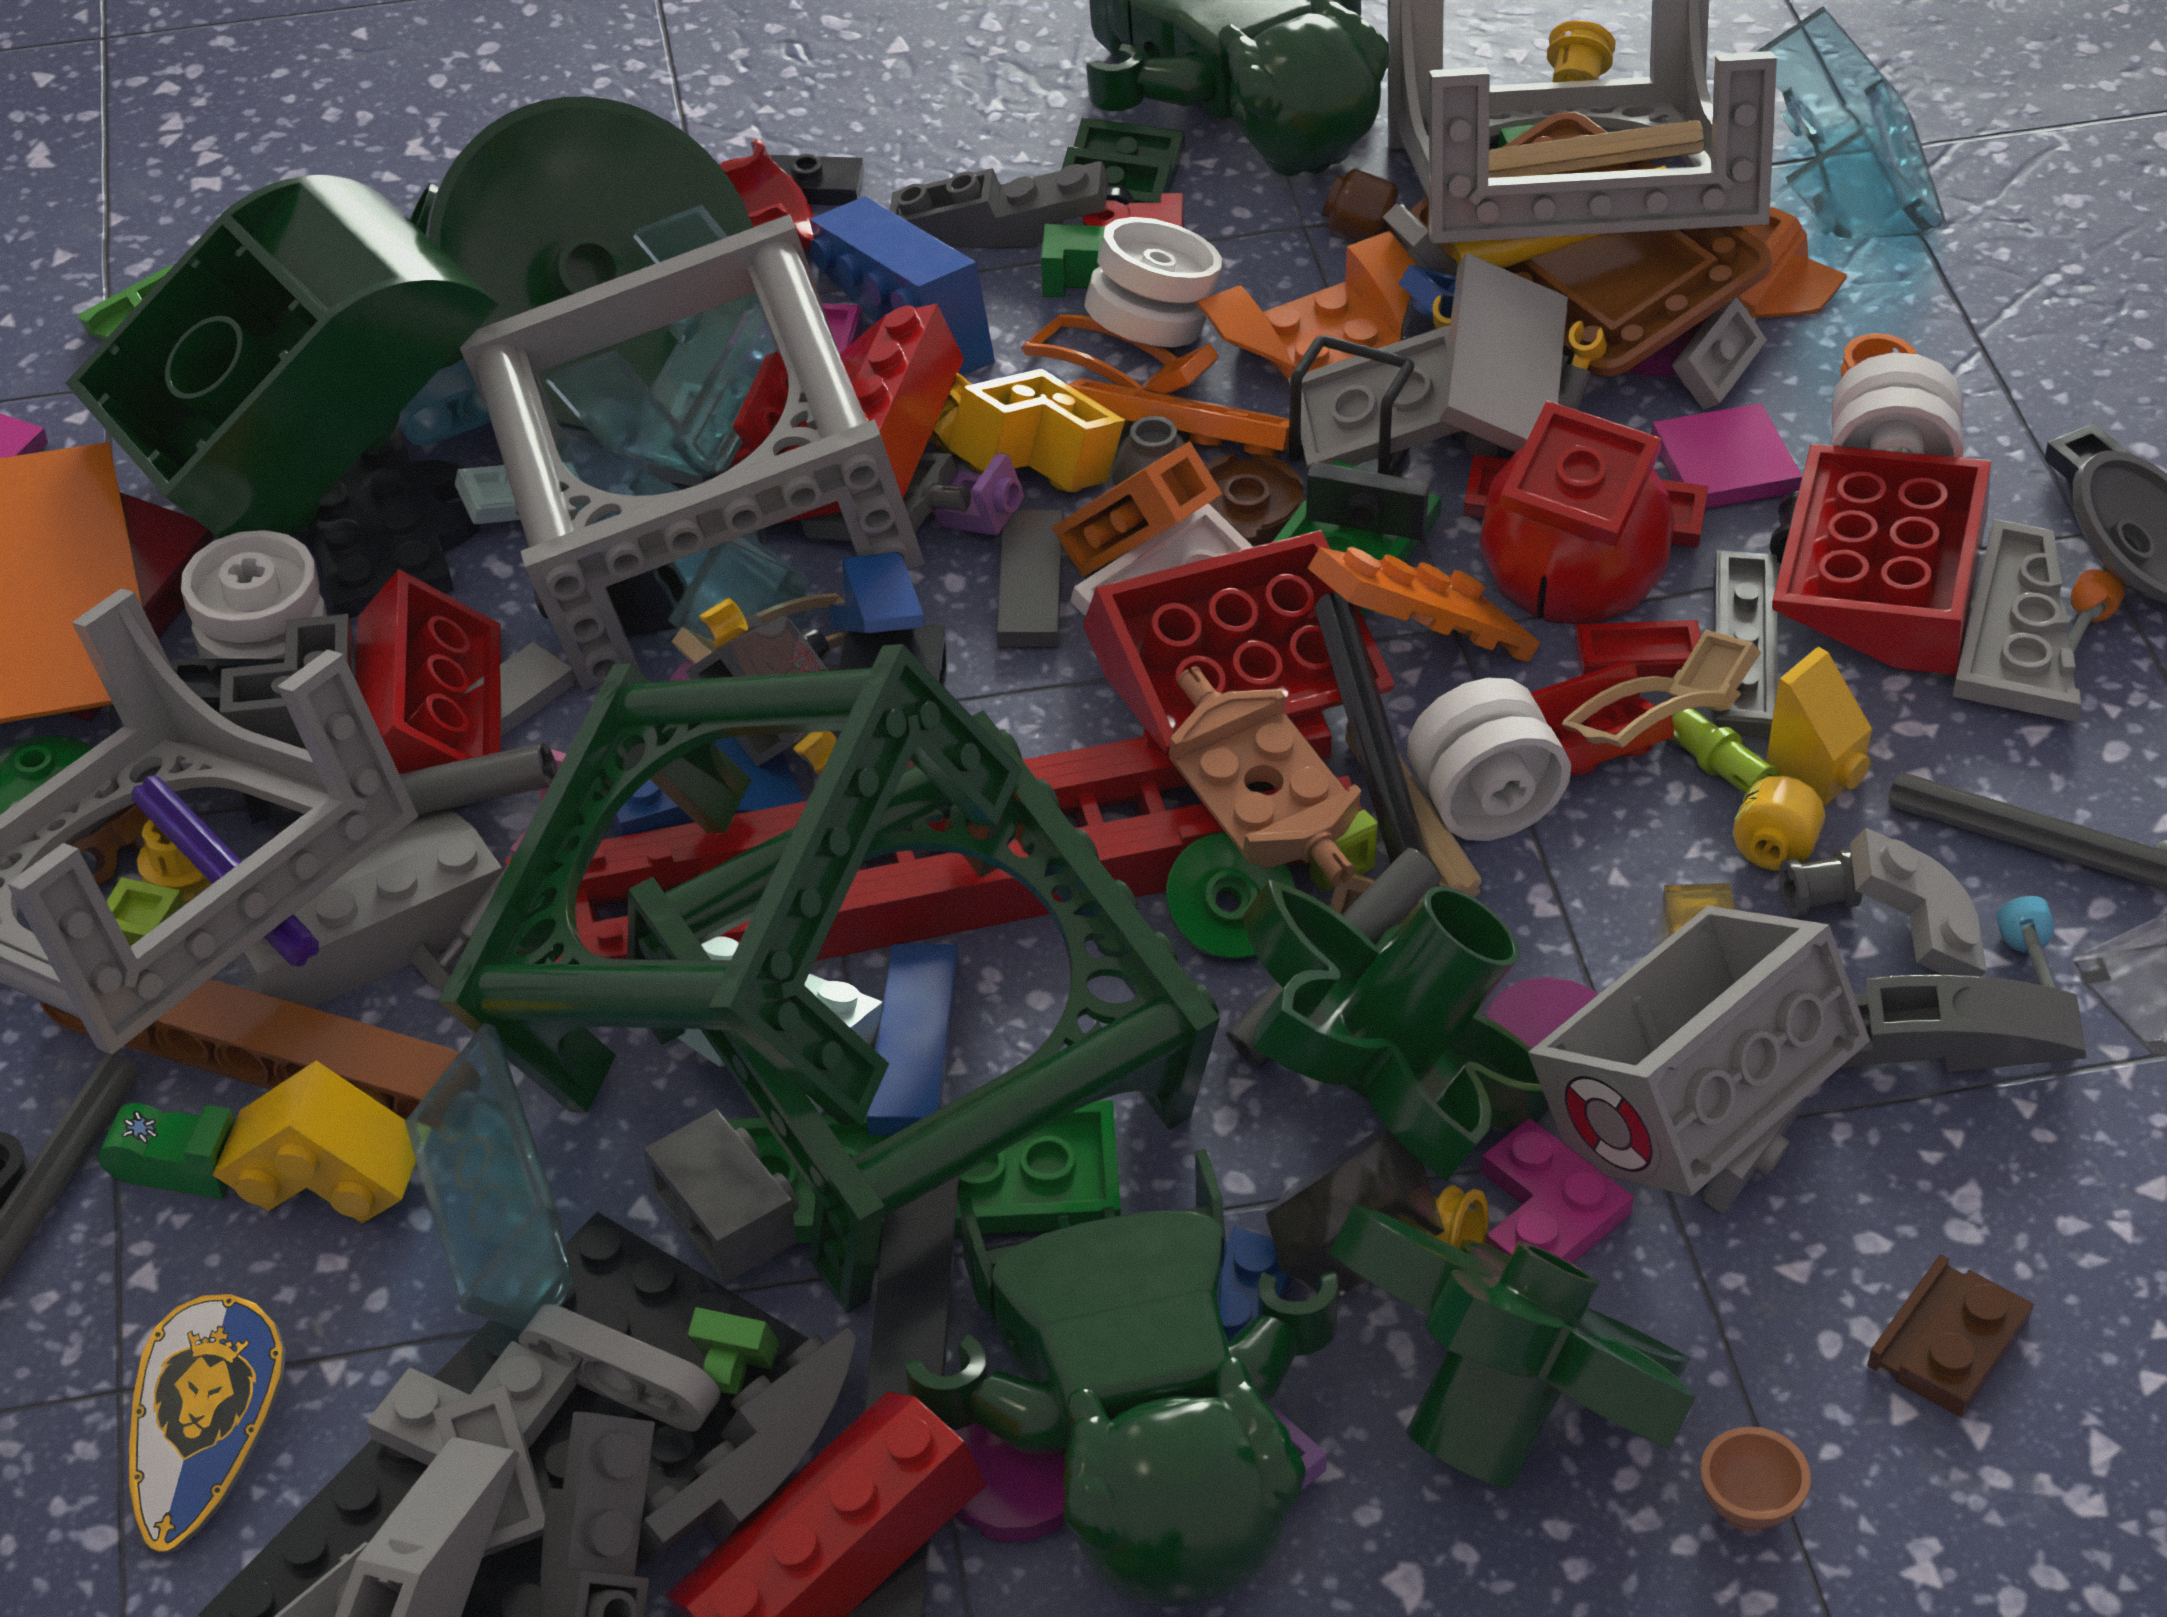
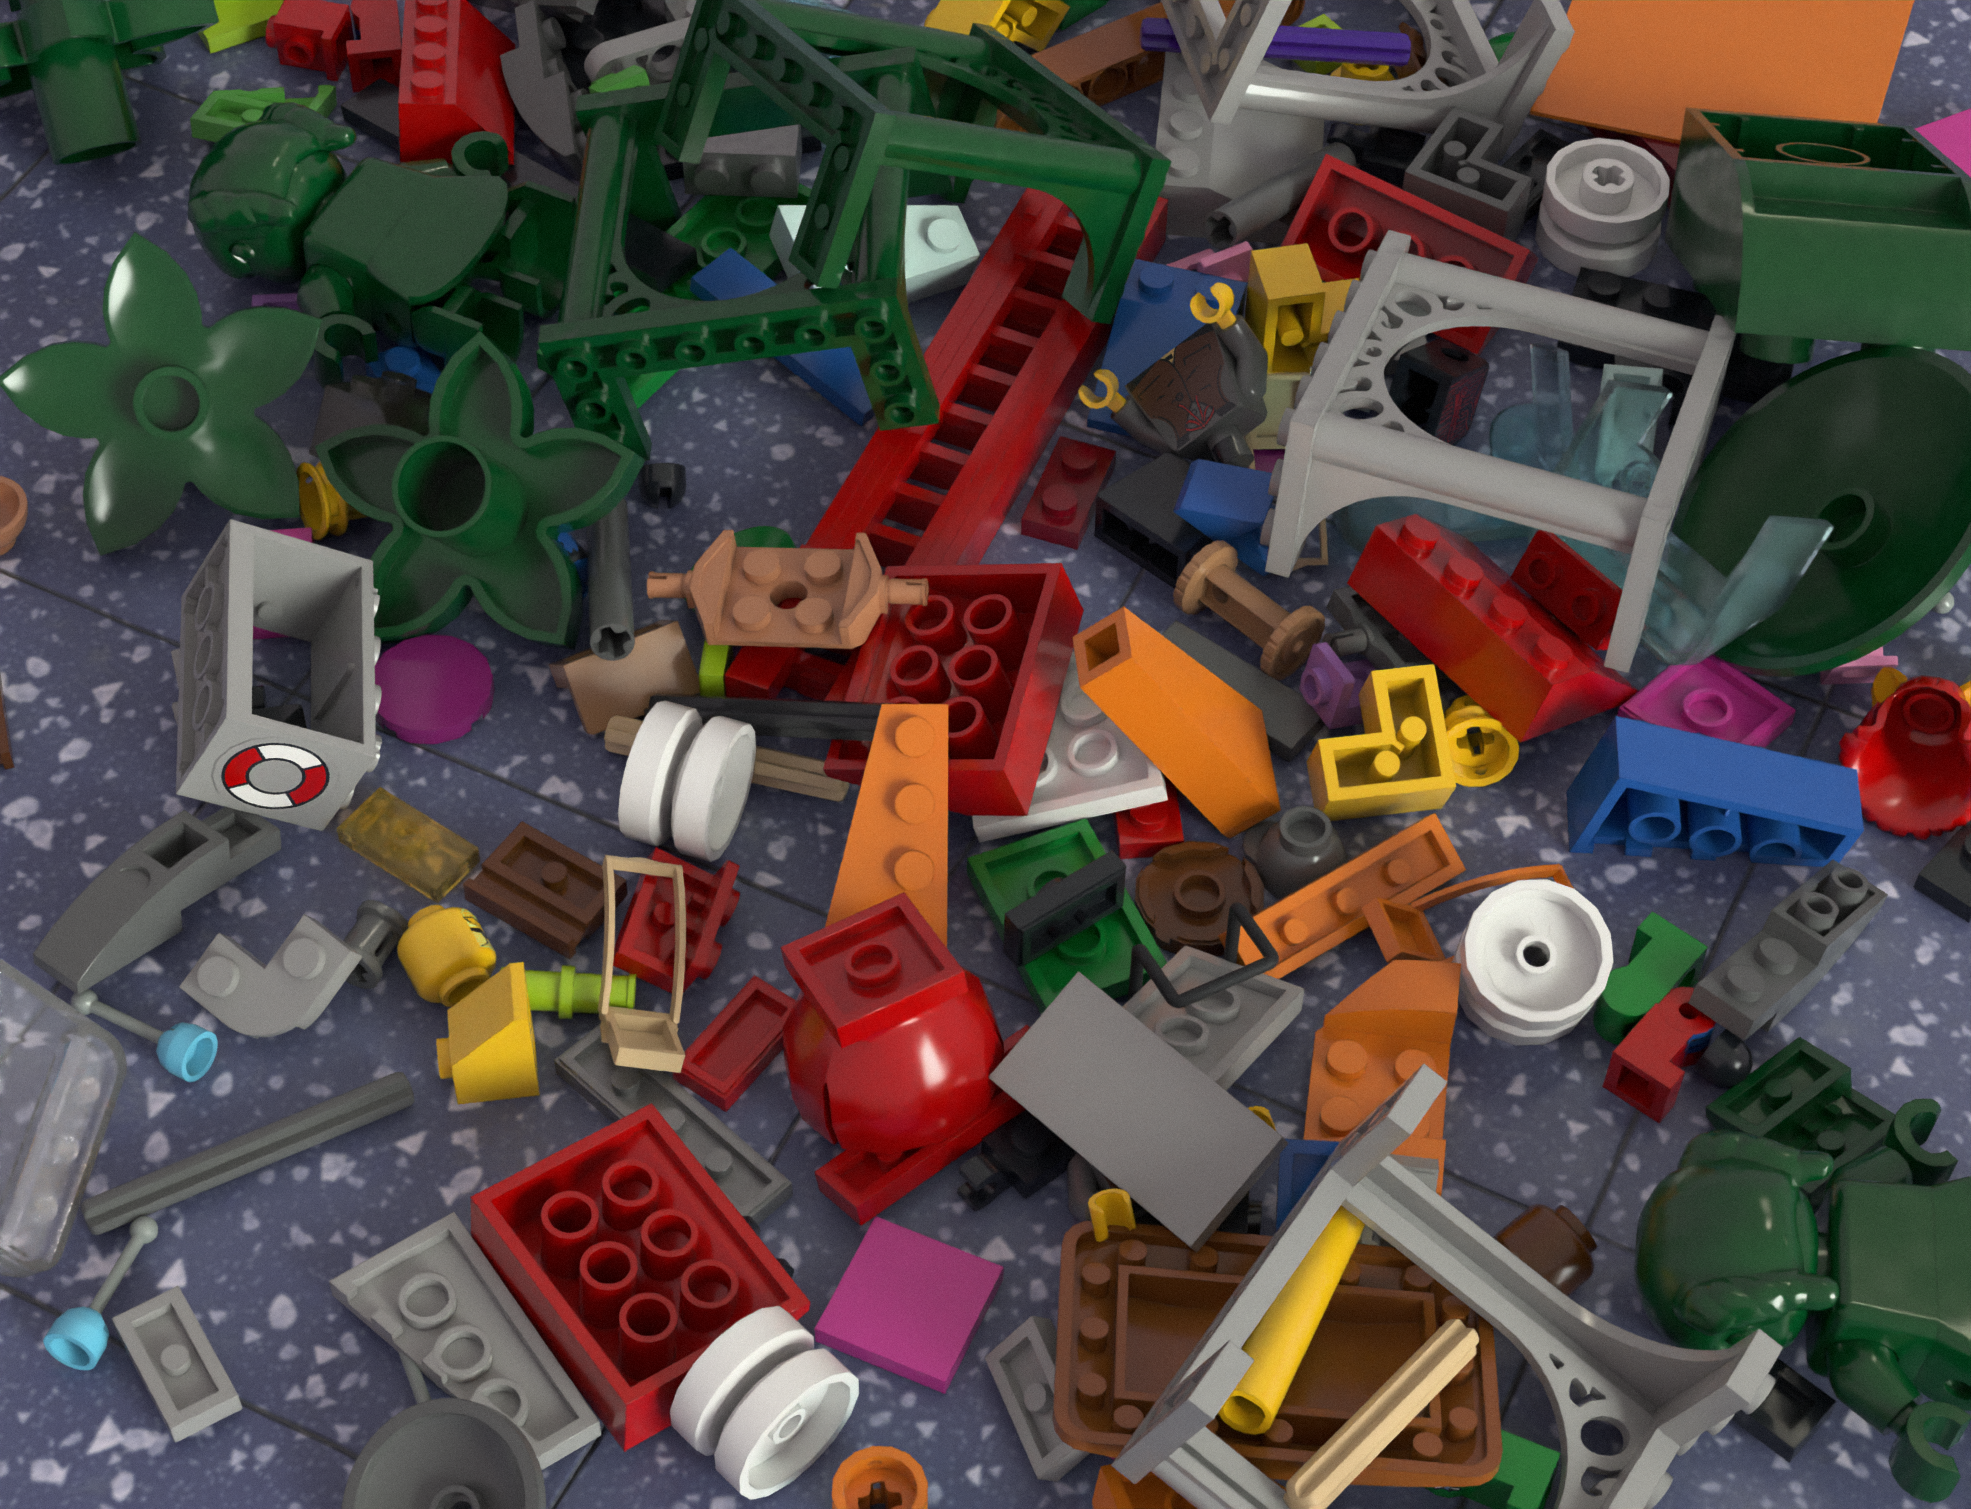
camera: 125 degrees right, 5 degrees up
(558, 691) = (1291, 305): none -> yellow brick
(963, 550) = (1213, 583): none -> medium nougat hose
(1652, 821) = (543, 889): none -> reddish brown plate

